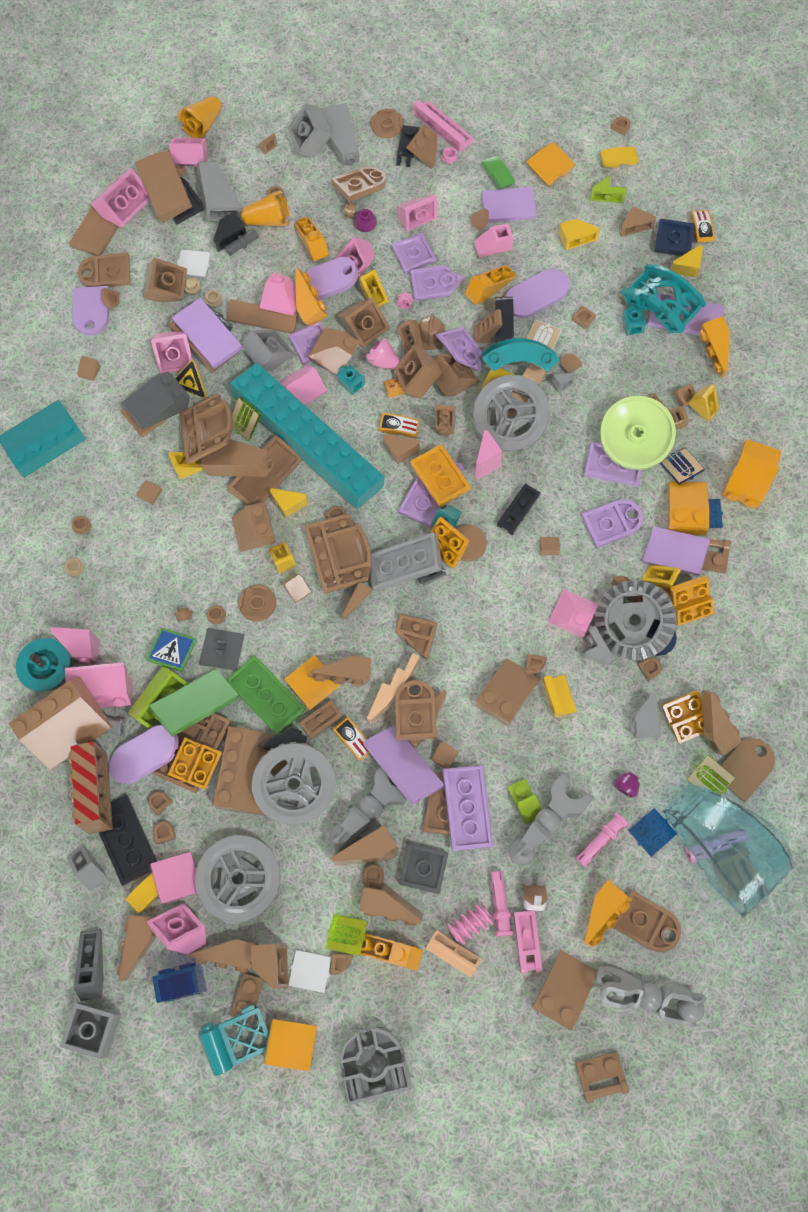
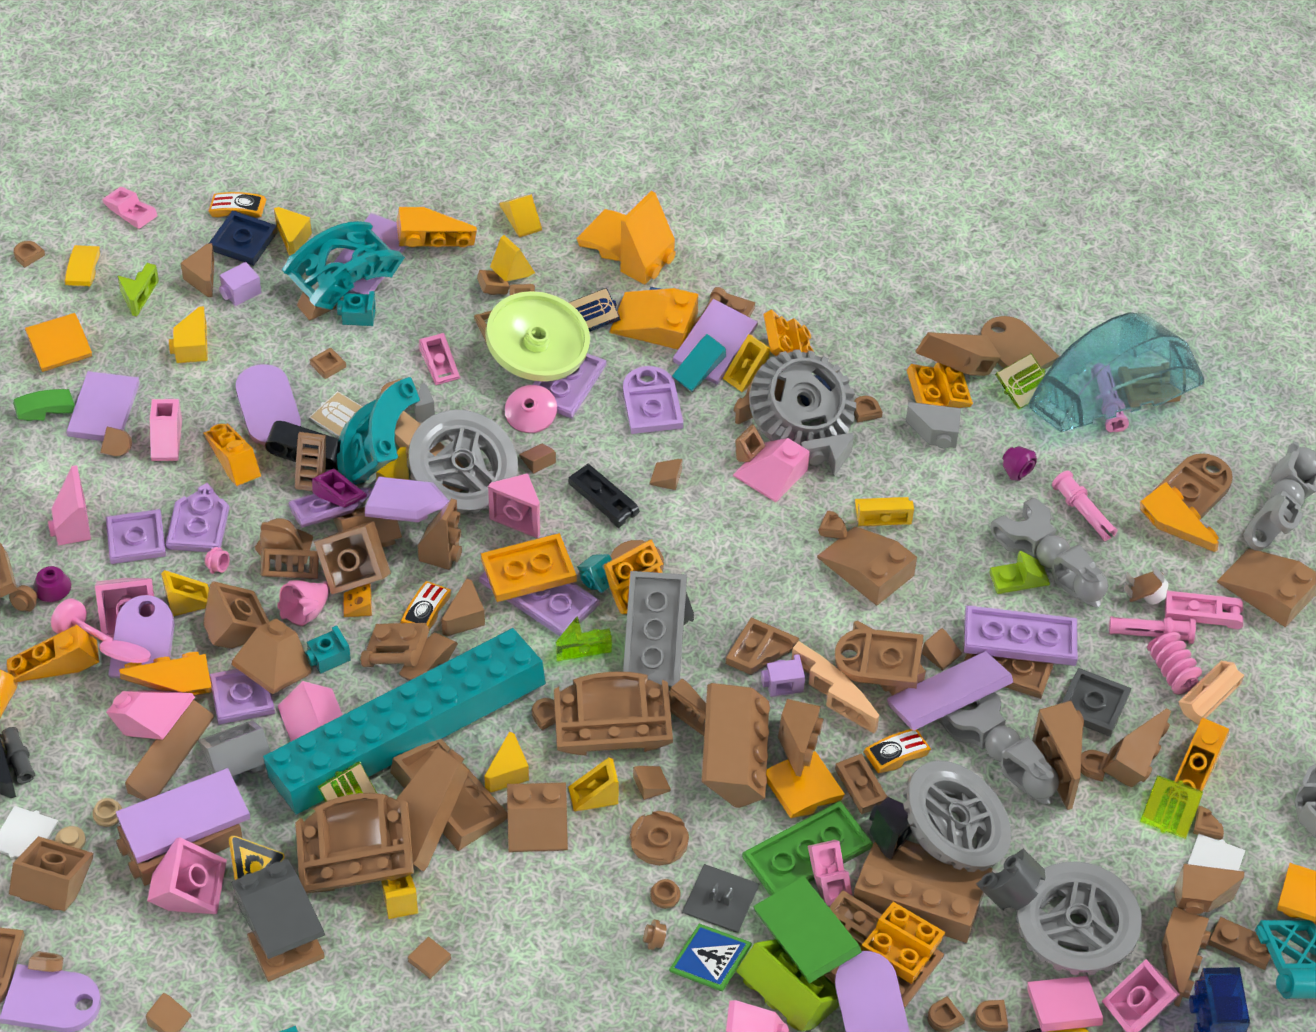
camera: 85 degrees left, 20 degrees down
(245, 829) = (1015, 883): none -> dark grey cylinder
(247, 711) = (829, 870): none -> bright pink slope
(311, 265) = (73, 612): none -> bright pink piece
(326, 631) = (736, 743): none -> medium nougat slope
(359, 436) = (434, 653): none -> medium nougat slope
(368, 415) = (395, 638): none -> medium nougat plate
(392, 519) = (575, 644): none -> clear neon green slope
(394, 653) = (784, 677): none -> lavender brick
(463, 385) = (404, 500): none -> lavender tile
(471, 348) = (336, 489): none -> magenta slope
(541, 462) = (538, 457): none -> medium nougat slope
(583, 453) = (535, 418): none -> bright pink dish
(586, 592) = (748, 444): none -> medium nougat slope
(608, 381) = (438, 358): none -> bright pink slope
(631, 246) = (240, 284): none -> lavender brick
(651, 544) = (700, 362): none -> teal slope
(652, 832) = (1081, 456): clear blue piece -> none
(679, 167) = (127, 206): none -> bright pink slope
(758, 398) = (522, 215): none -> yellow slope

